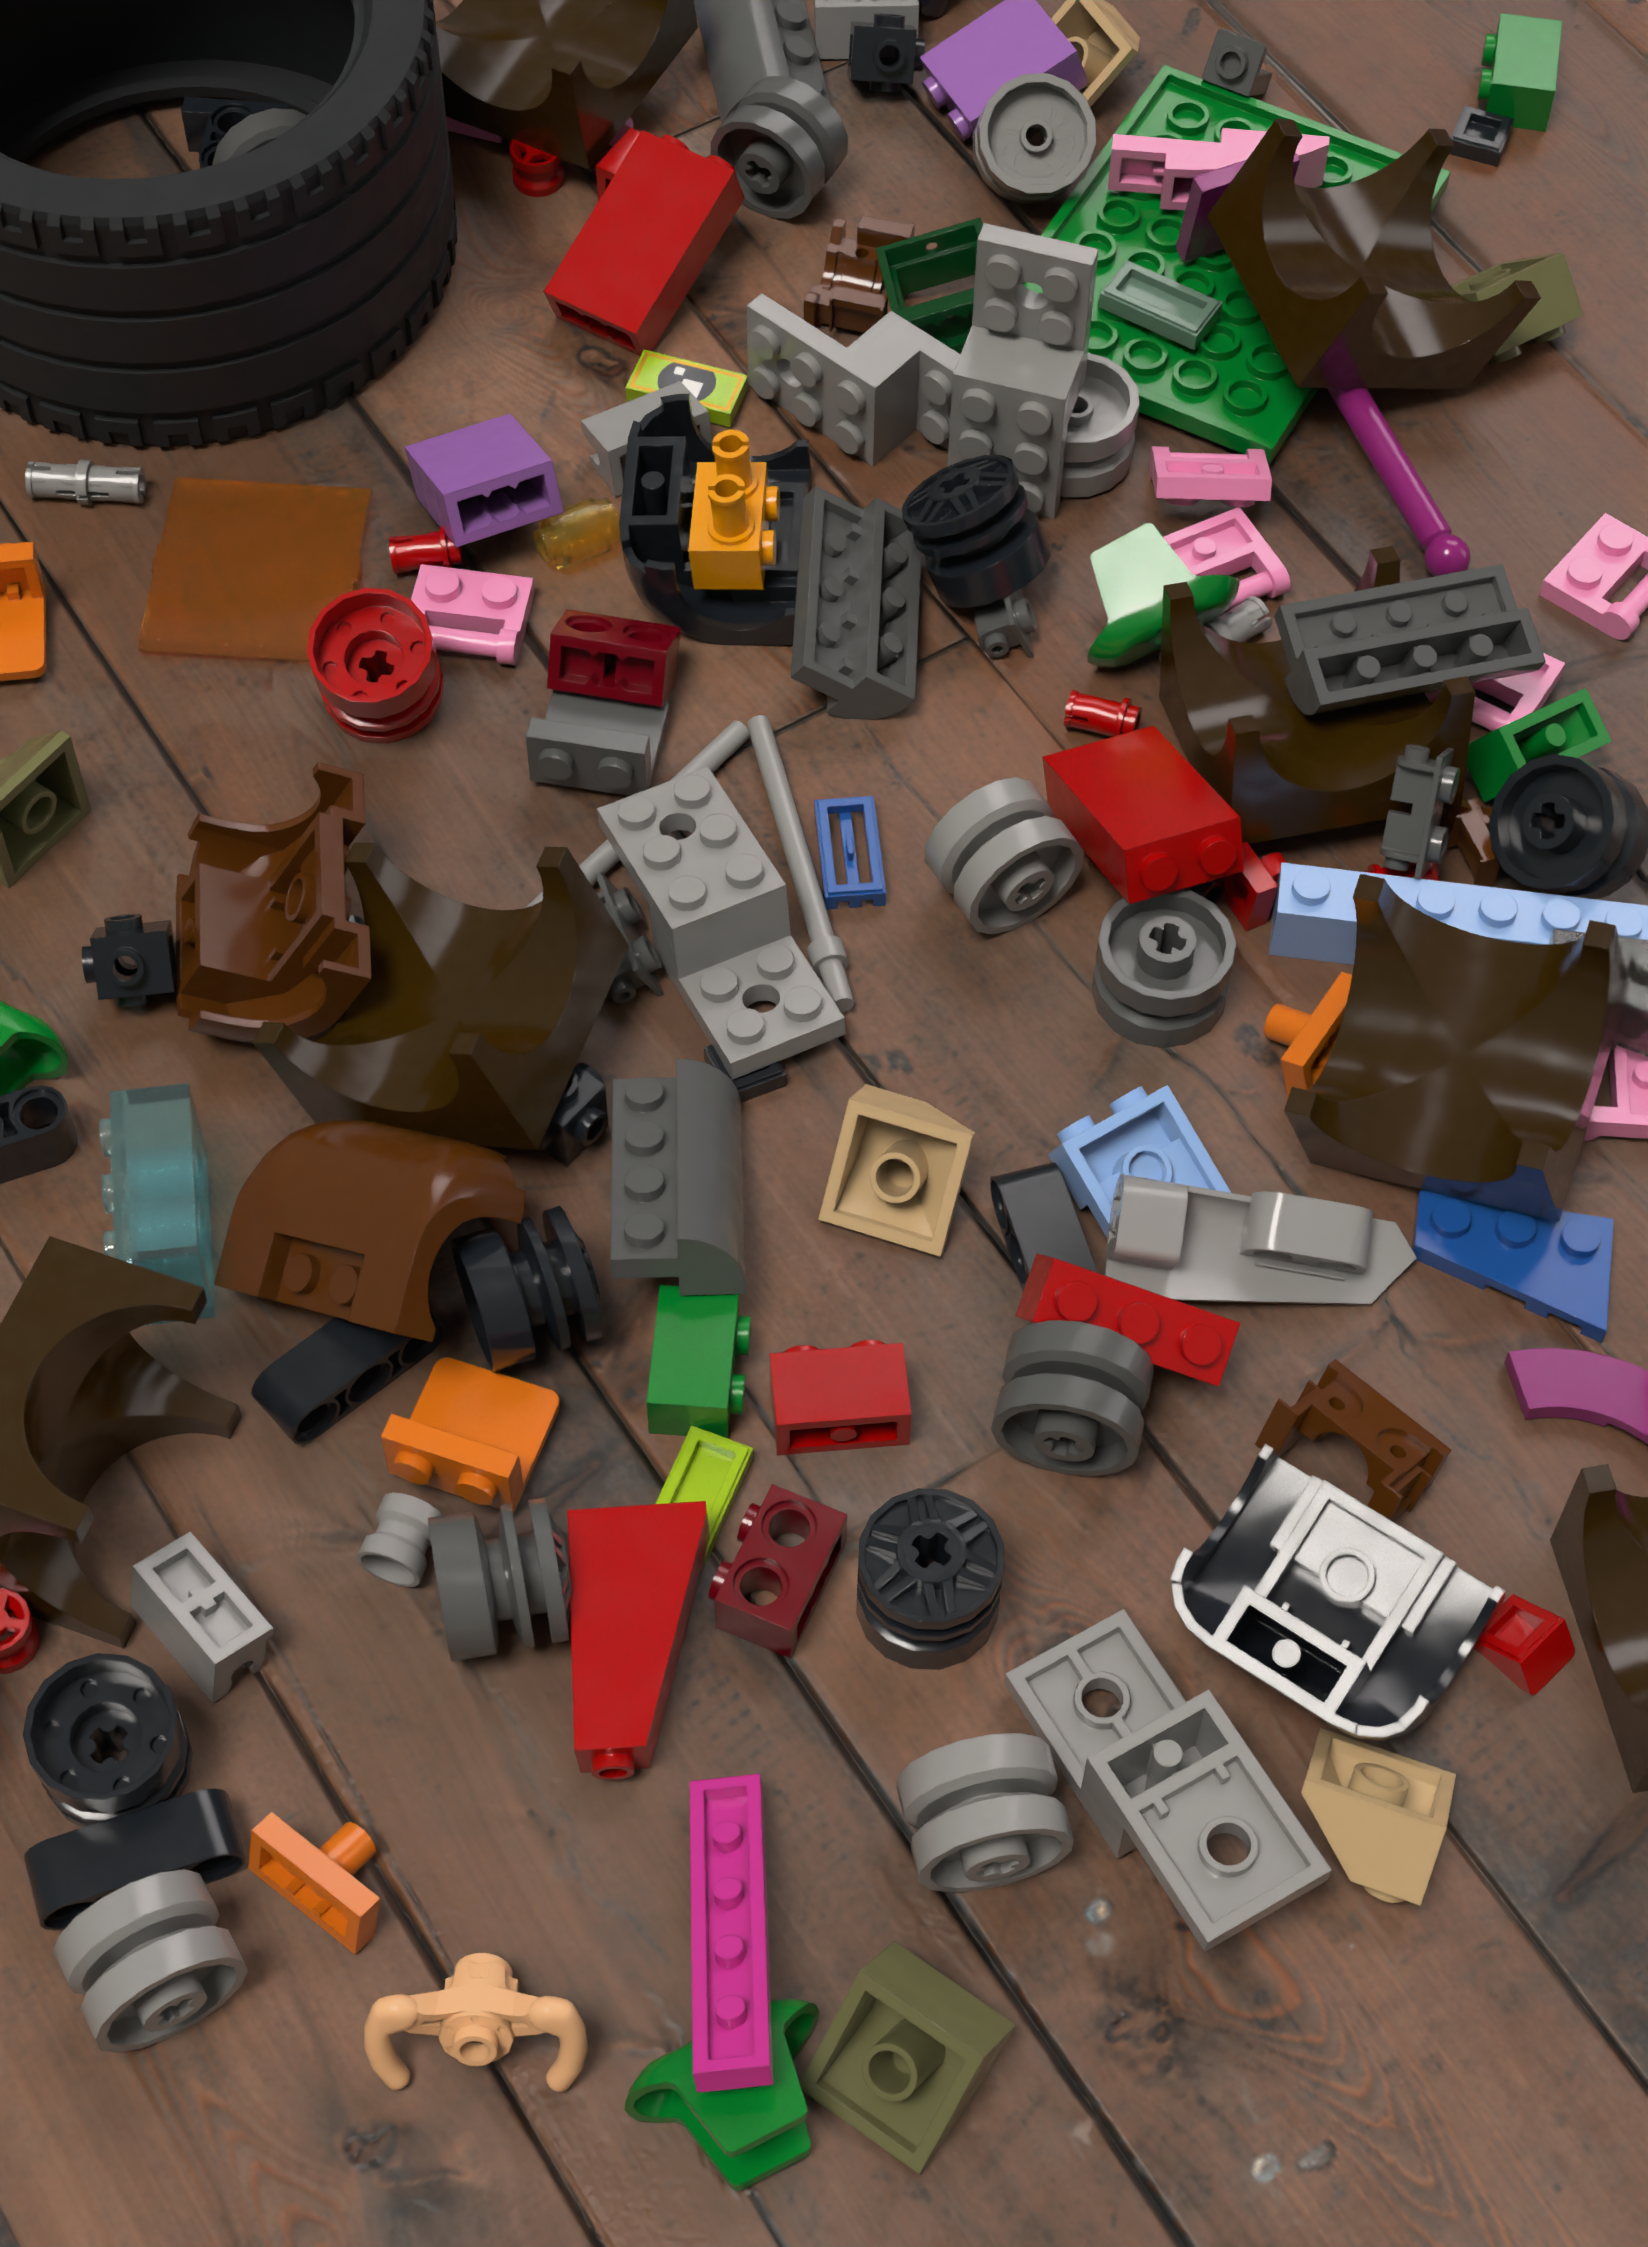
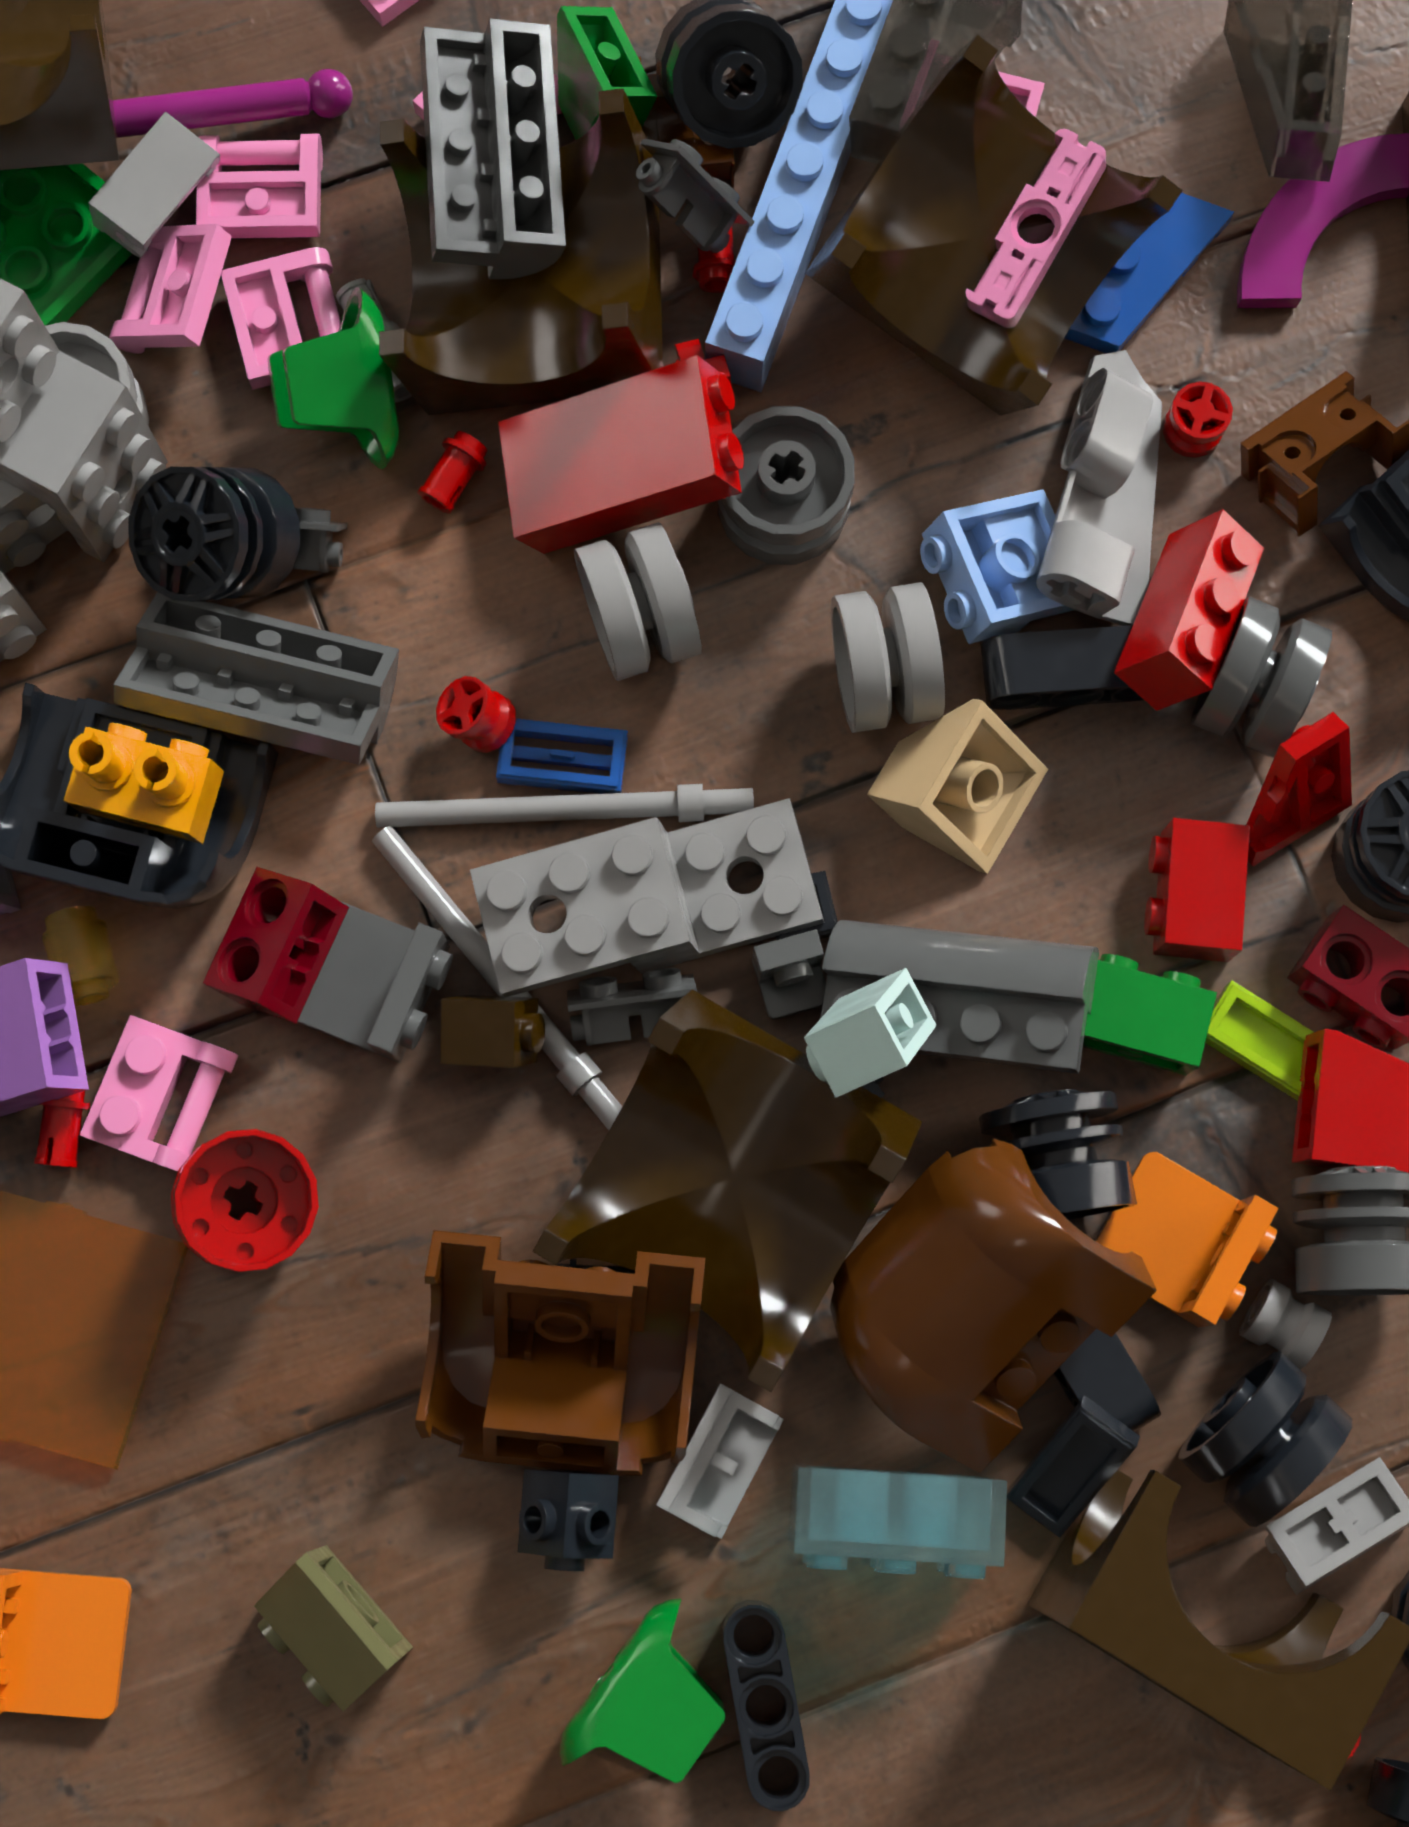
camera: 80 degrees left, 20 degrees up
(223, 1072) = (720, 1461): none -> light grey hinge
(232, 1358) = (1072, 1466): none -> black tile
(276, 1510) = (1266, 1439): none -> black wheel
(566, 816) = (491, 1031): none -> dark brown brick
(608, 1067) = (869, 1033): none -> light aqua brick
(678, 1037) = (790, 974): none -> dark grey bracket
(867, 767) = (475, 714): none -> red wheel
(970, 1454) = (1302, 788): none -> red wing
(1003, 1063) = (888, 657): none -> light grey wheel
(1297, 427) = (151, 184): none -> light grey hinge
(1308, 1035) = (882, 369): orange tile -> none
(1320, 527) = (264, 201): none -> bright pink plate
(1369, 1319) = (1203, 405): none -> red wheel
(1519, 1098) = (1019, 265): none -> bright pink piece

